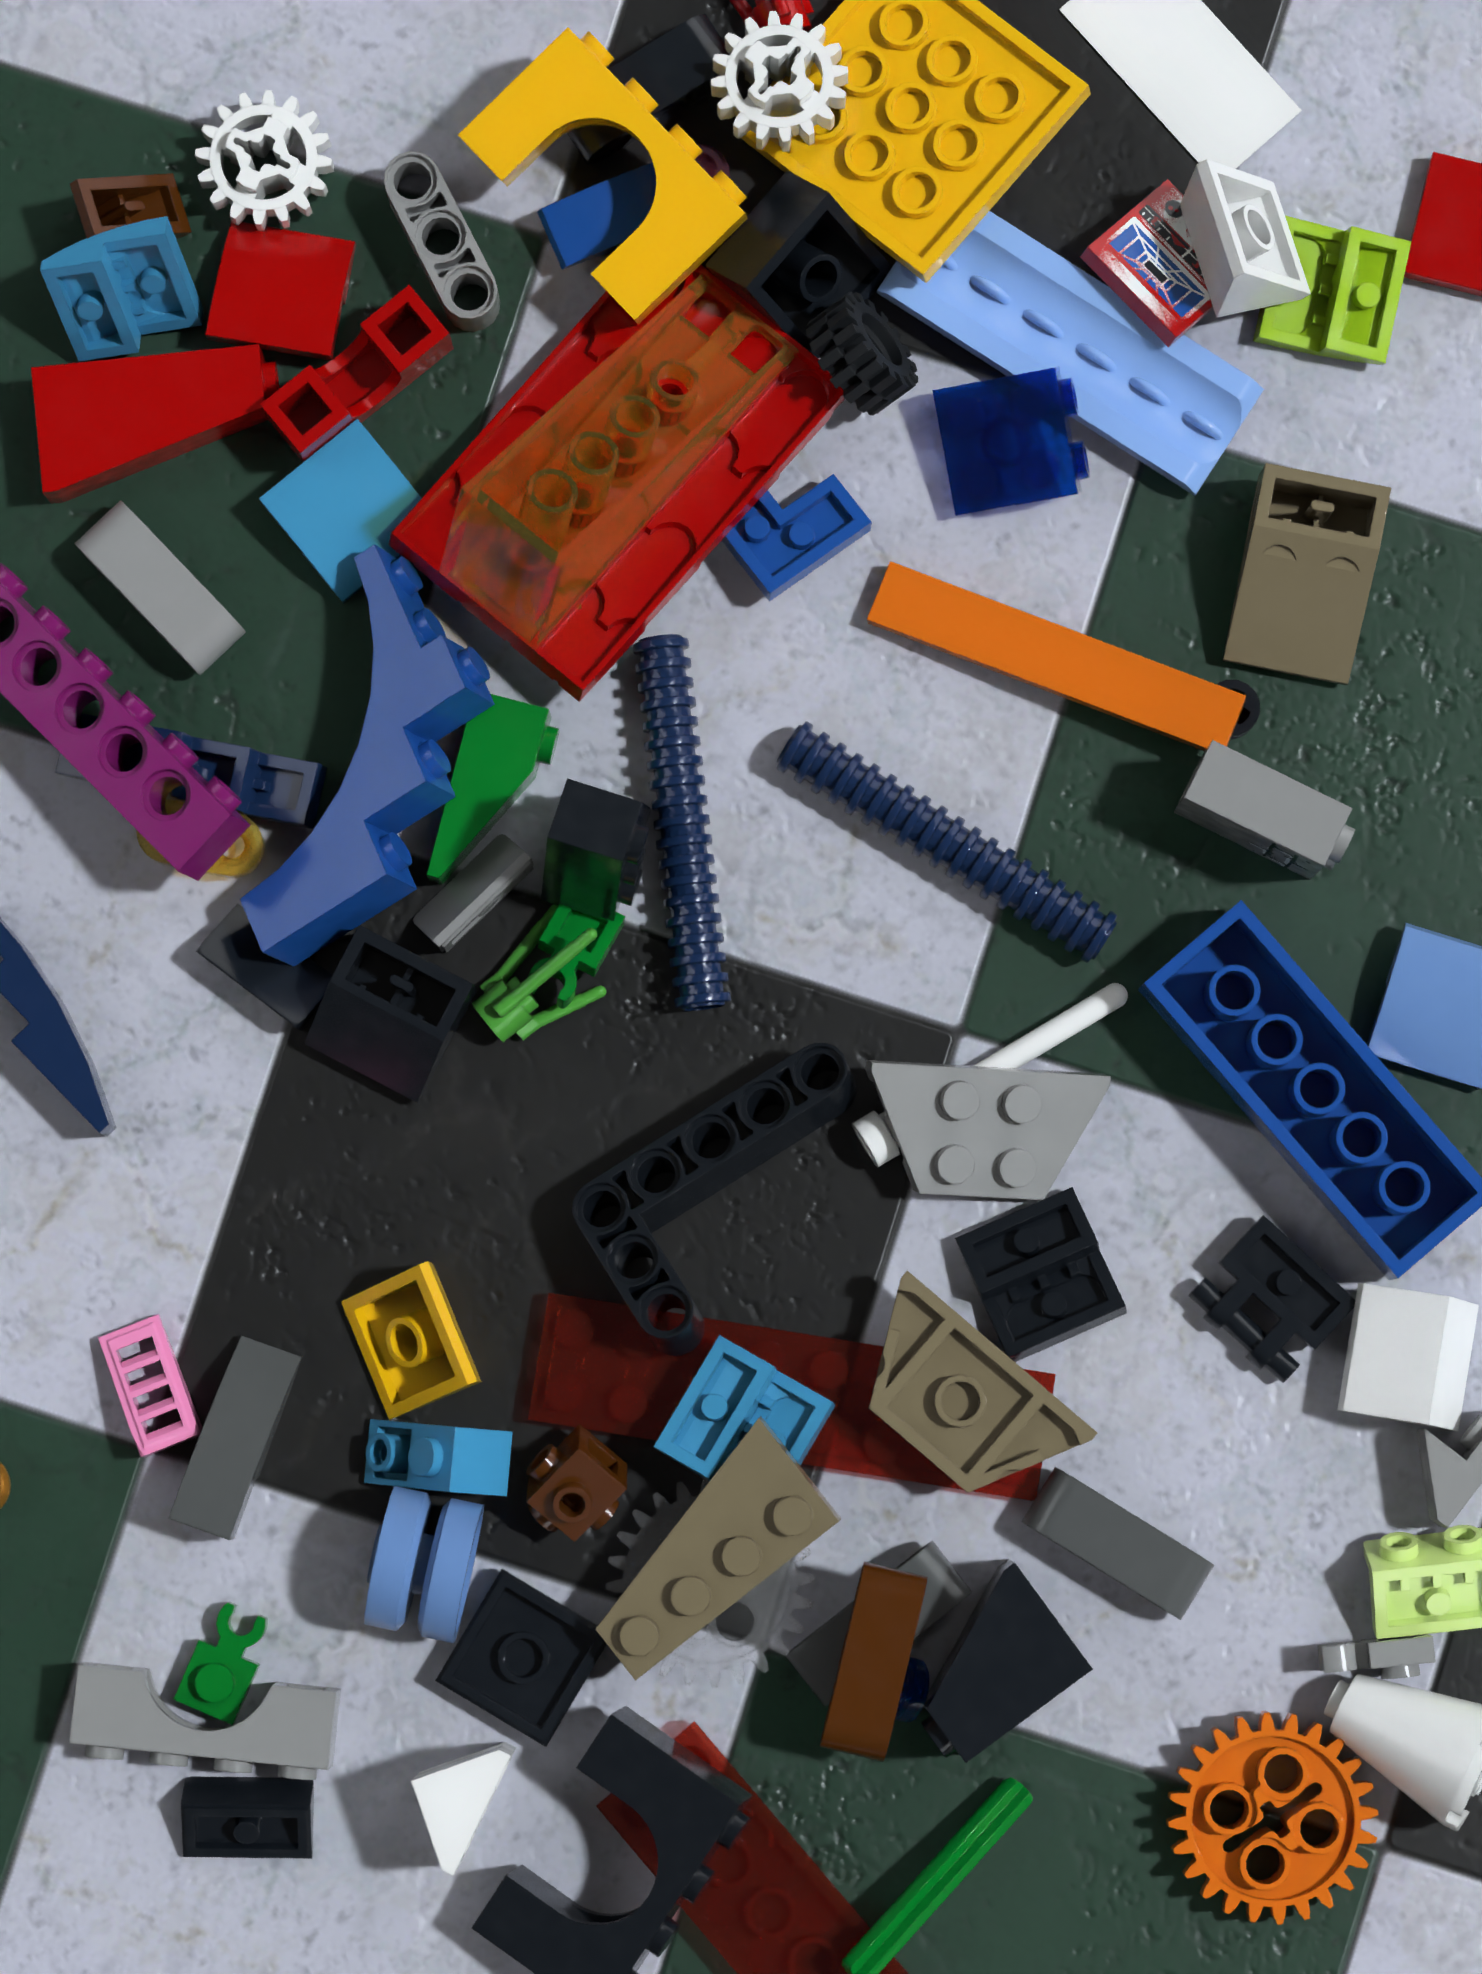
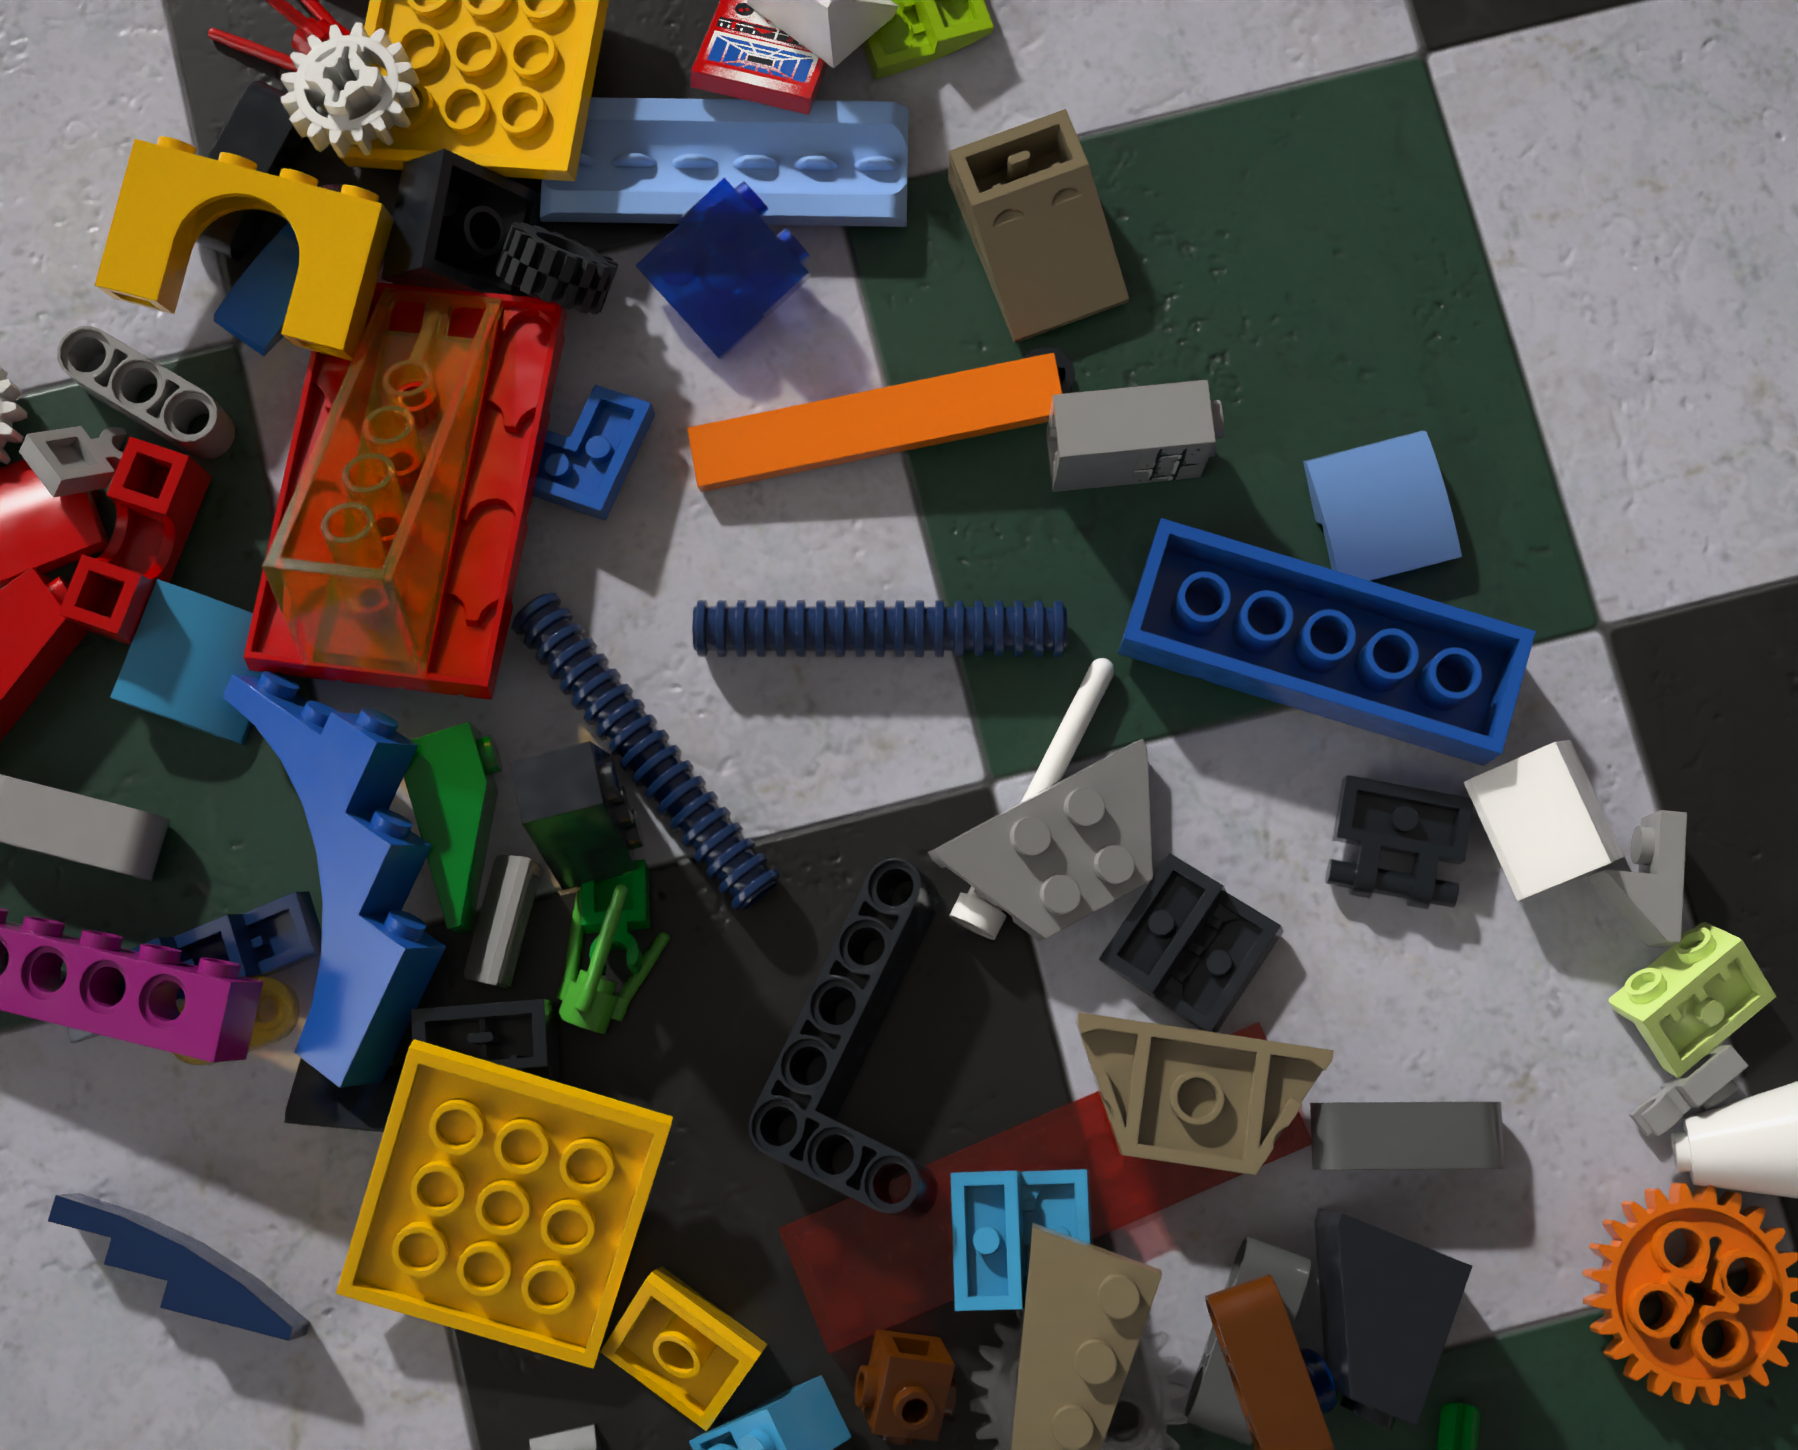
camera: 30 degrees left, 5 degrees down
(339, 1132) = (503, 1204): none -> yellow plate
(347, 273) = (72, 461): none -> light grey plate

